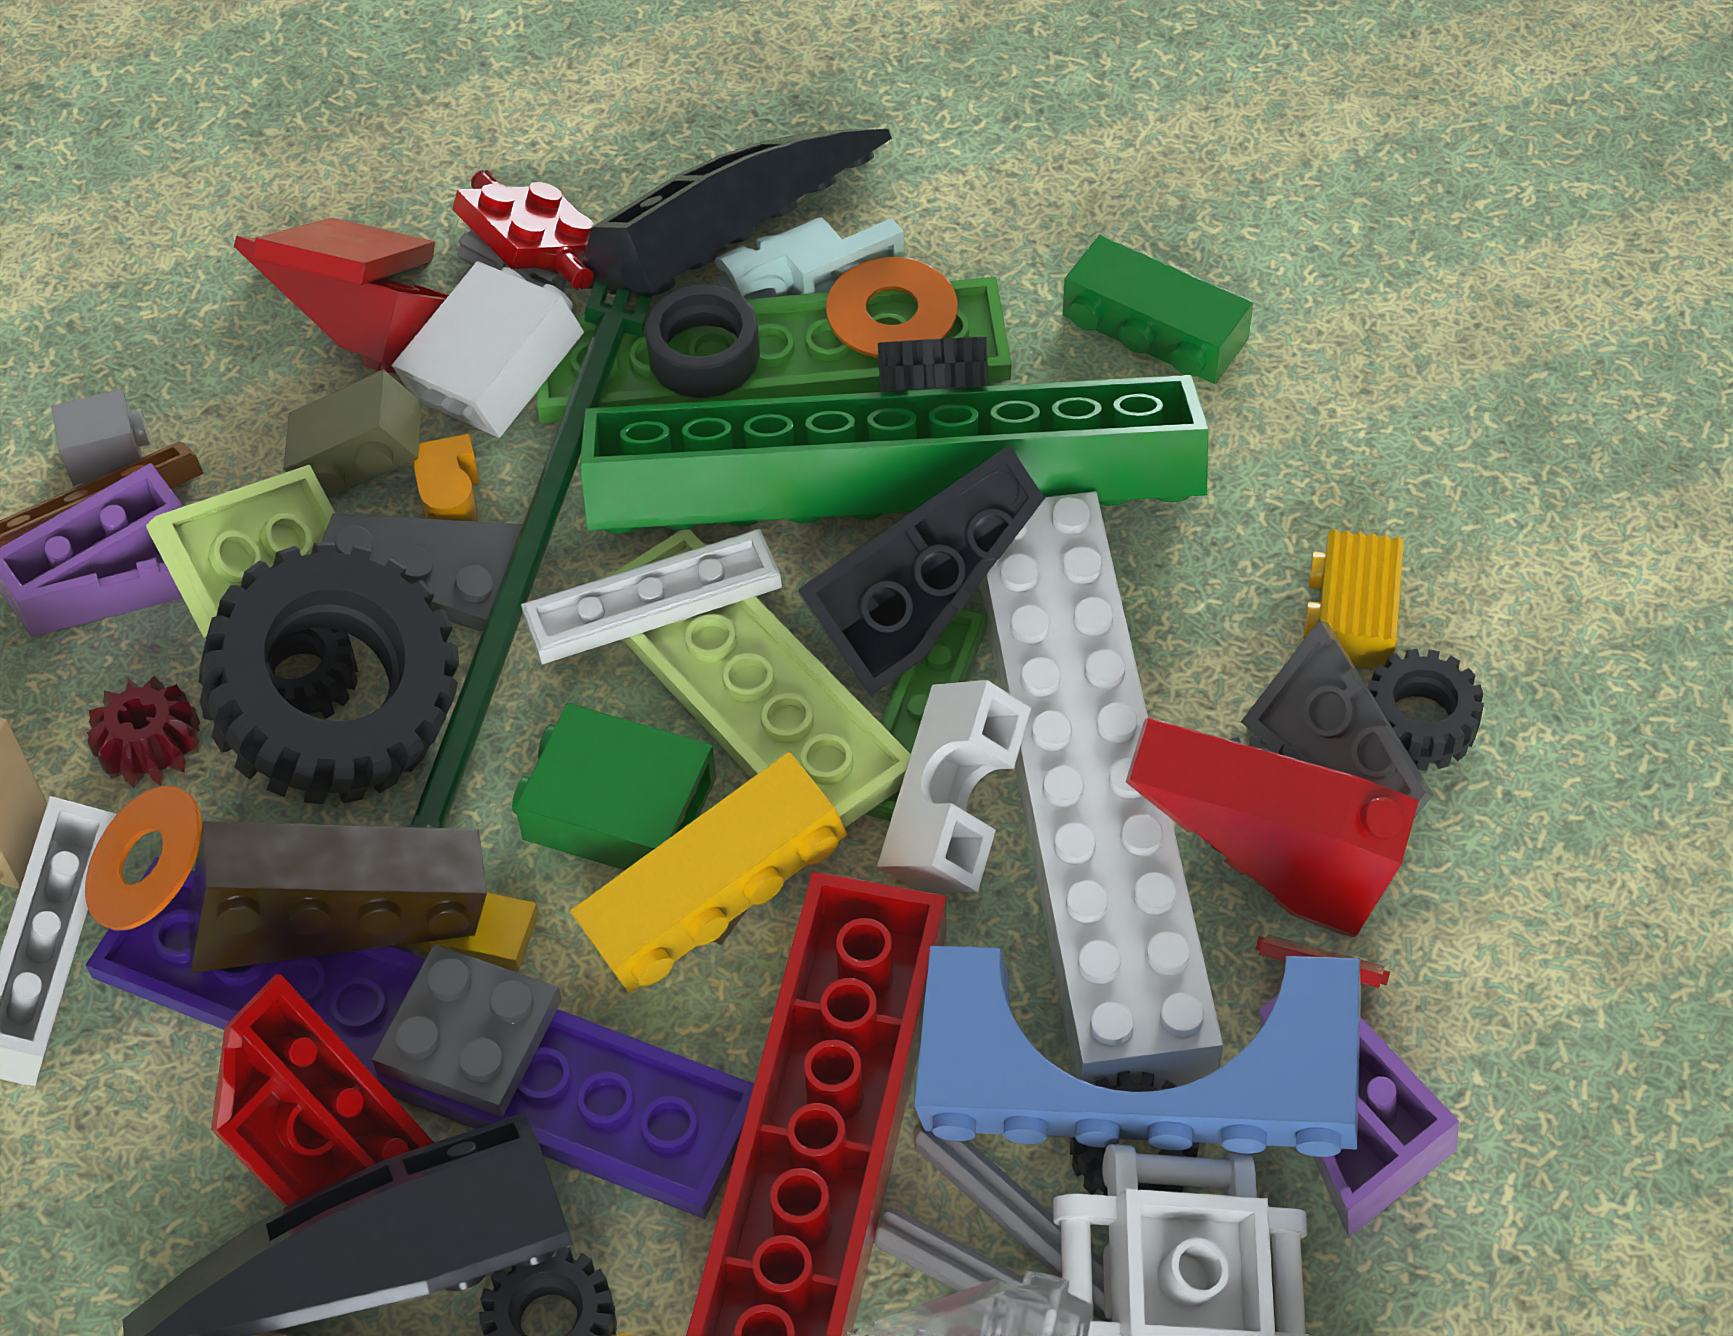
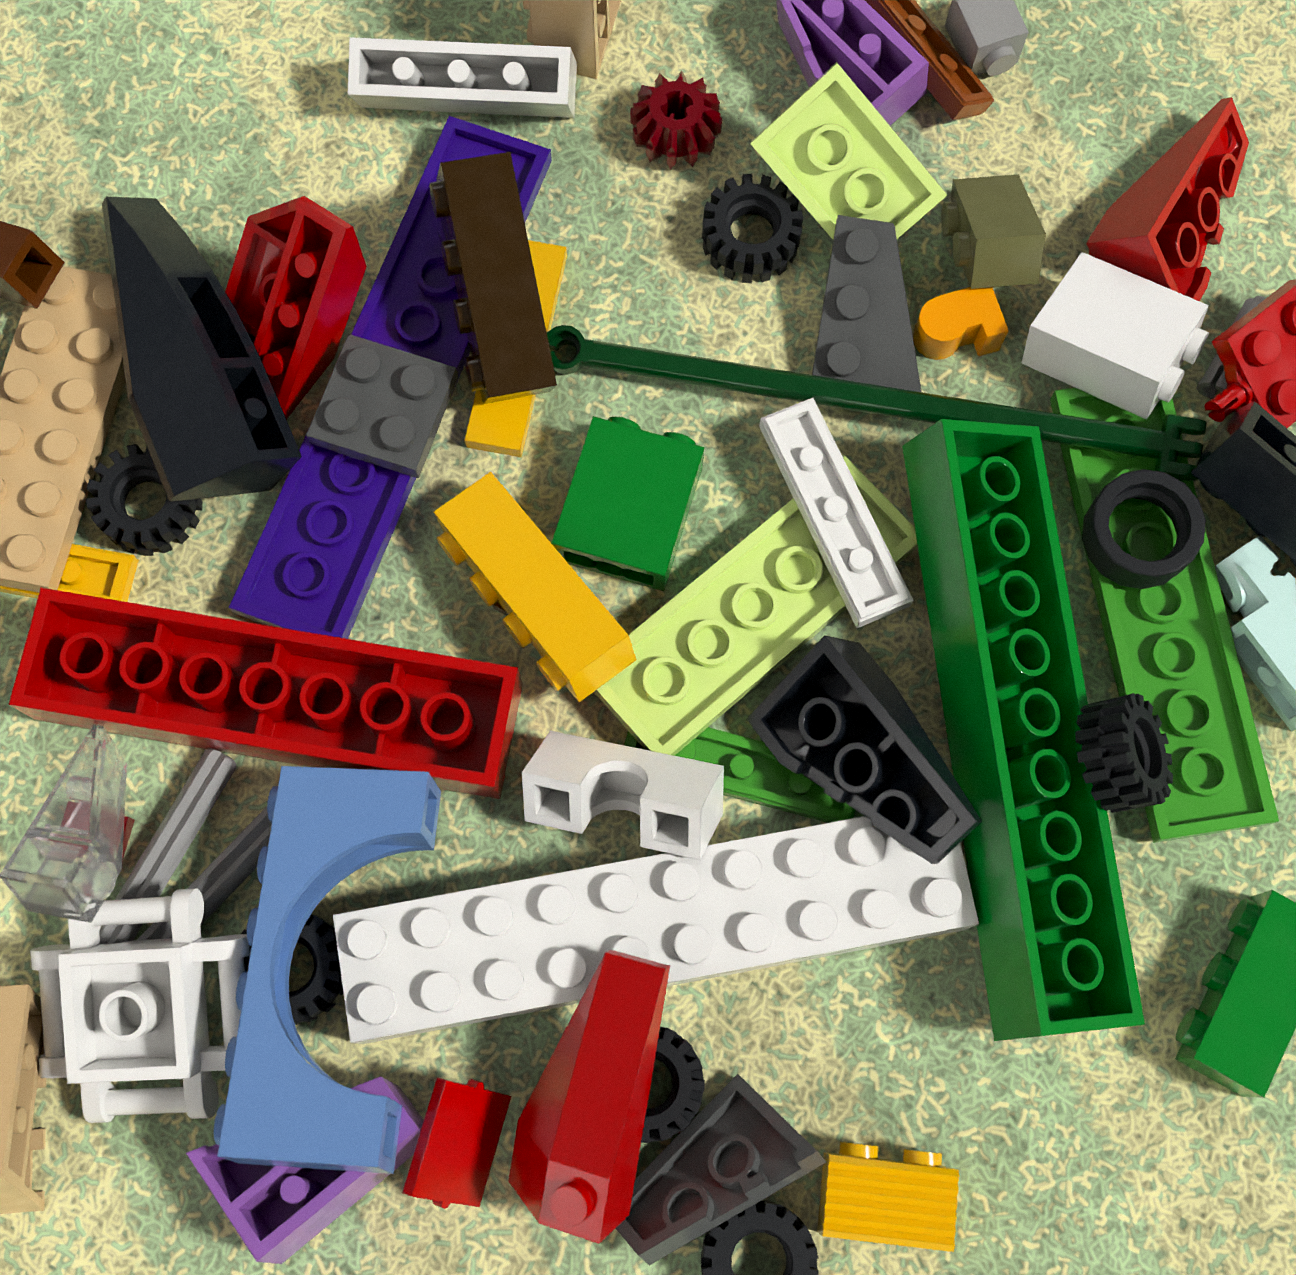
camera: 85 degrees right, 20 degrees up
(130, 905) = (544, 122): orange gear -> none
(341, 595) = (656, 187): black tyre -> none
(343, 250) = (1217, 189): red tile -> none
(856, 286) = (1258, 691): orange gear -> none

